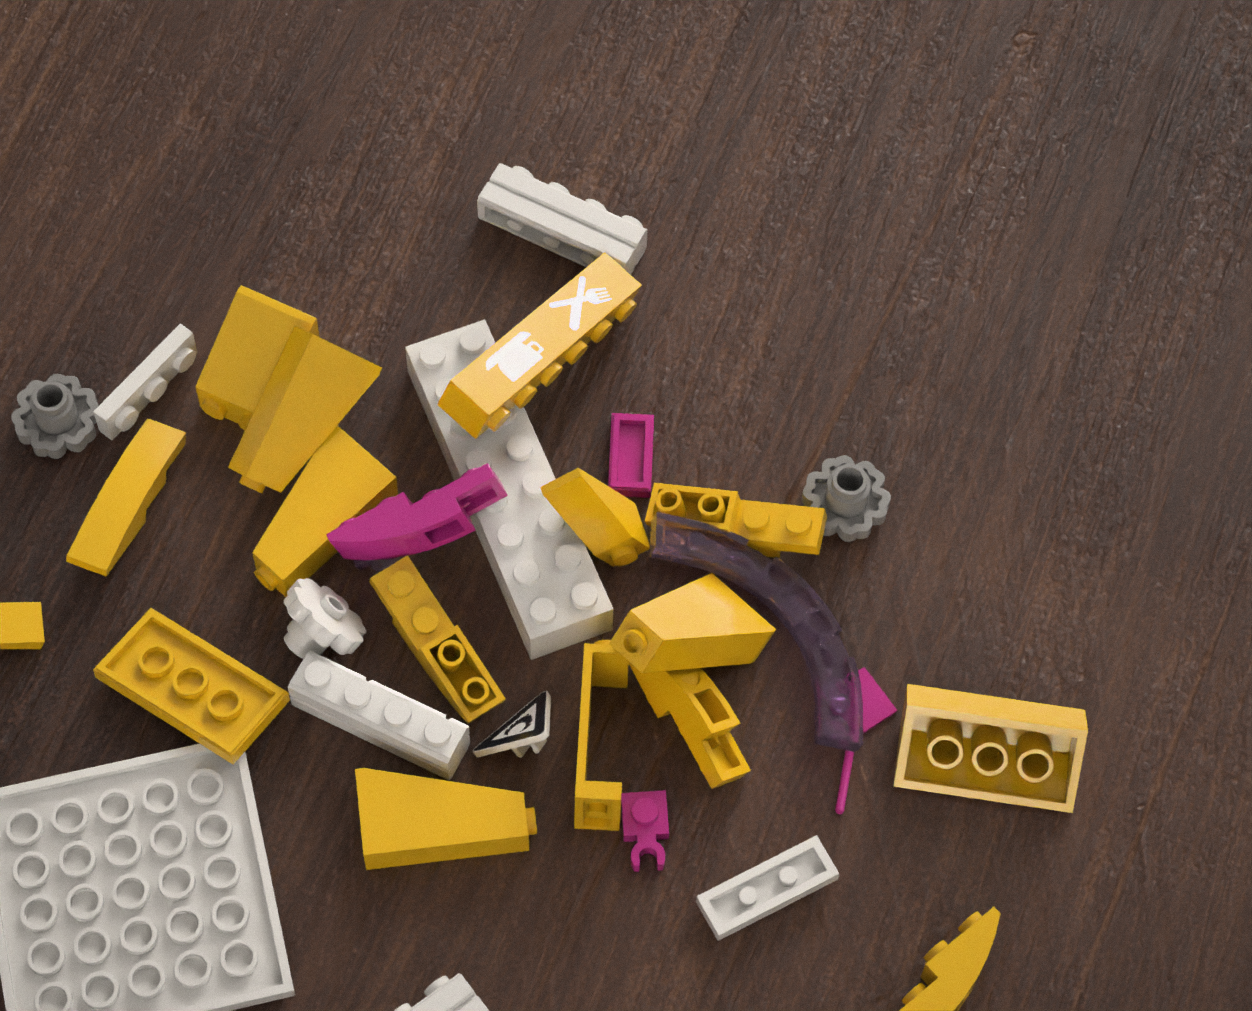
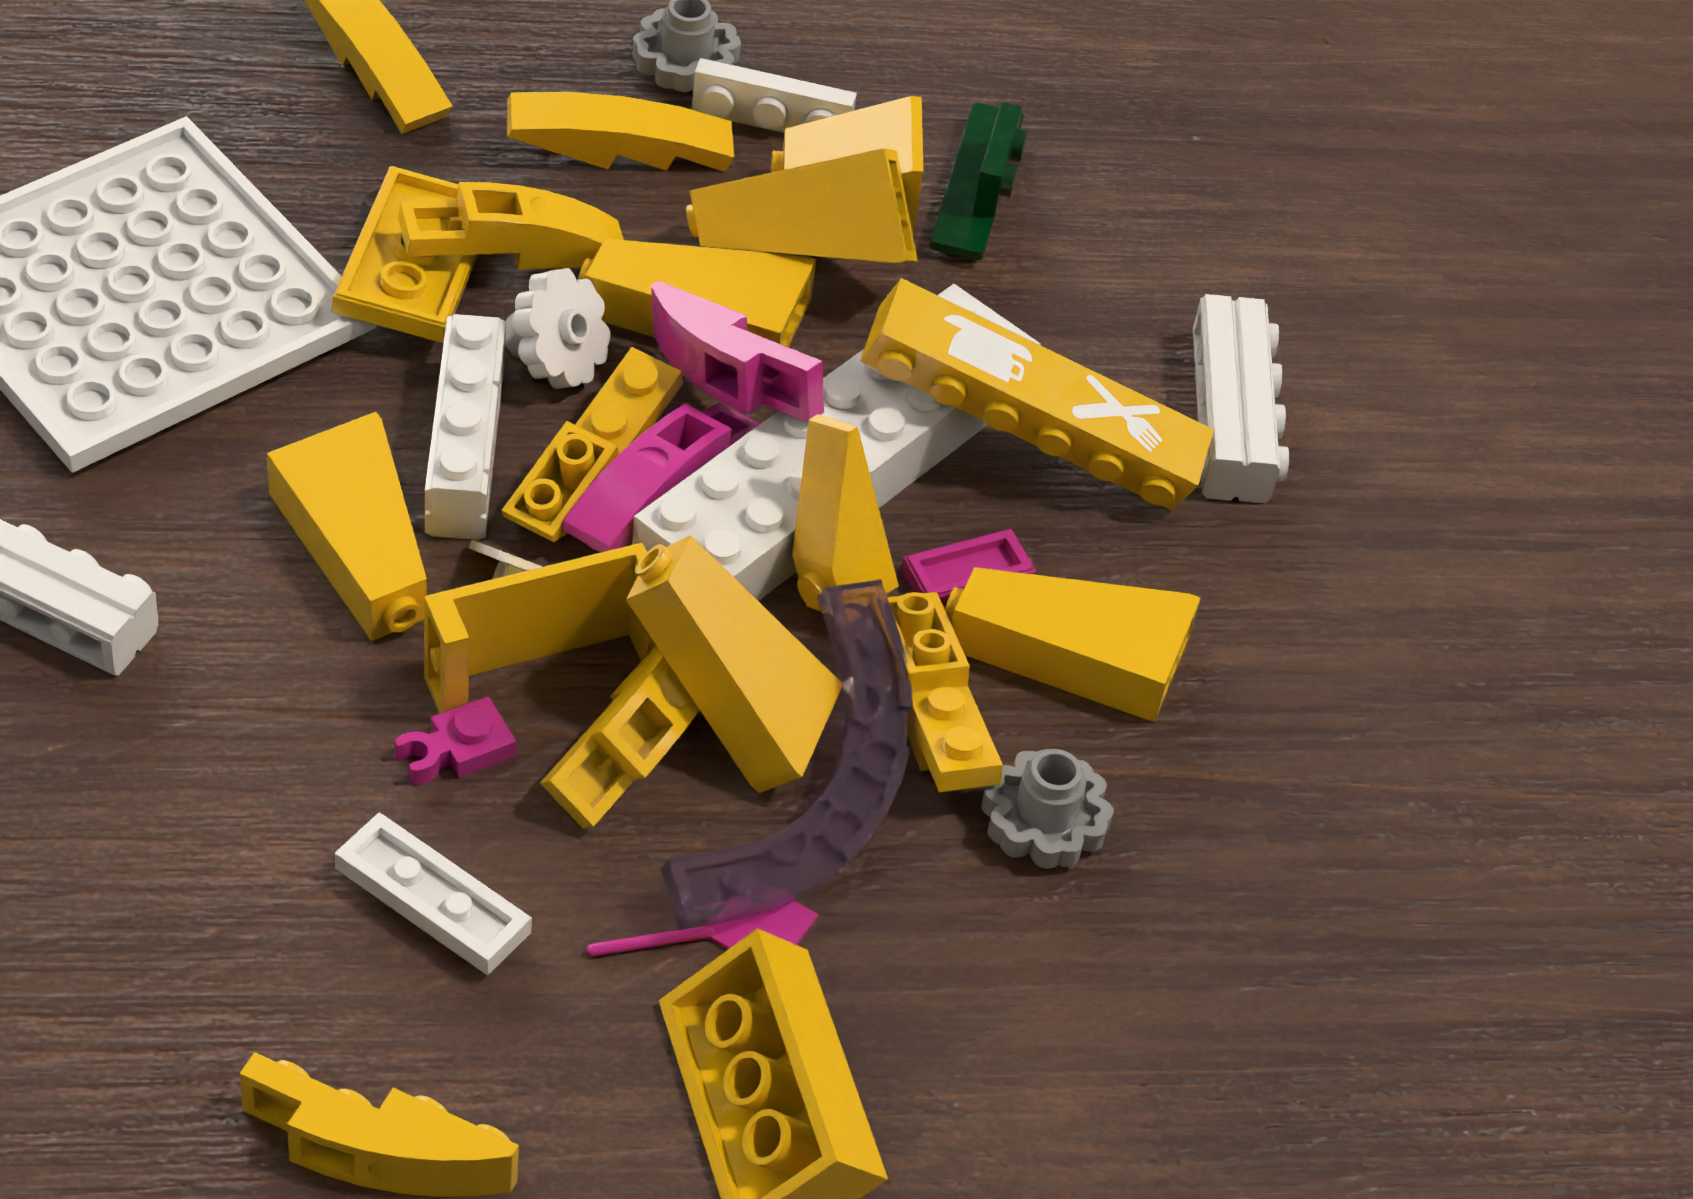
camera: 60 degrees right, 15 degrees down
(208, 613) = (499, 218): none -> yellow slope
(282, 273) = (979, 179): none -> dark green bracket
(485, 611) = (649, 469): none -> dark pink slope
(724, 414) = (1076, 634): none -> yellow slope

